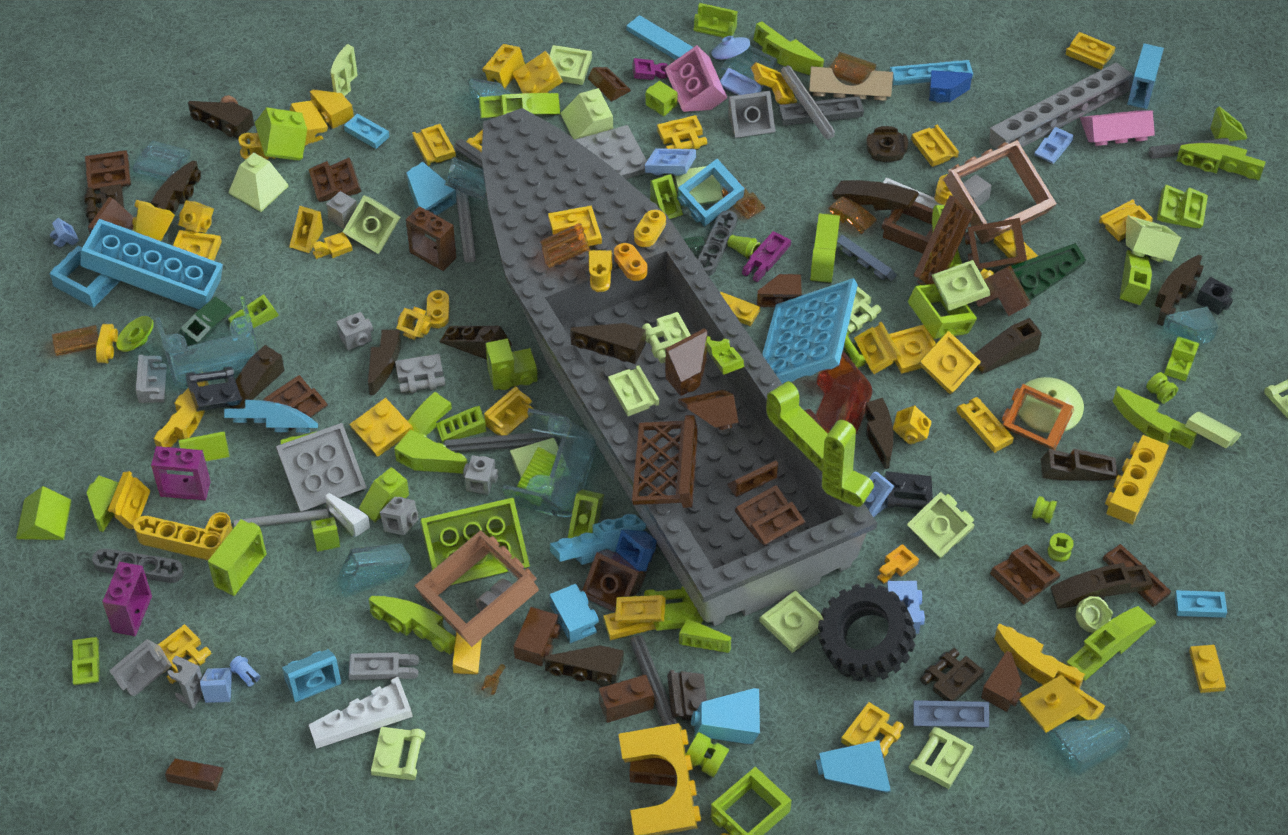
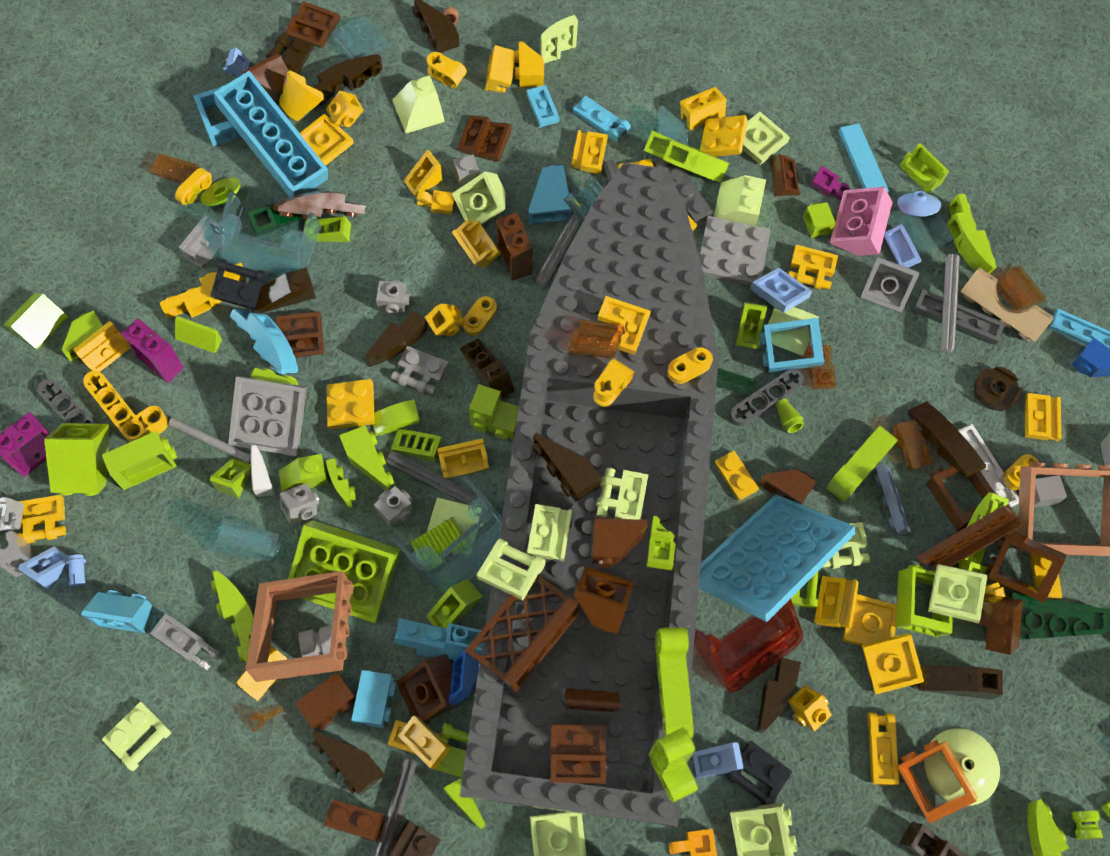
camera: 30 degrees right, 15 degrees up
(181, 588) = (76, 458): none -> lime slope
(229, 296) = (315, 201): none -> slope
(282, 133) = (465, 70): lime slope -> none
(375, 711) = (137, 680): white wing -> none
(394, 256) = (476, 243): none -> yellow hinge
(423, 116) = (601, 118): none -> medium azure plate
(423, 487) = (341, 485): none -> lime slope
(624, 429) = (508, 576): none -> yellowish green plate
(626, 258) = (648, 389): light orange plate -> none
(766, 255) = (803, 438): magenta hinge -> none
(774, 79) = (935, 260): yellow plate -> none

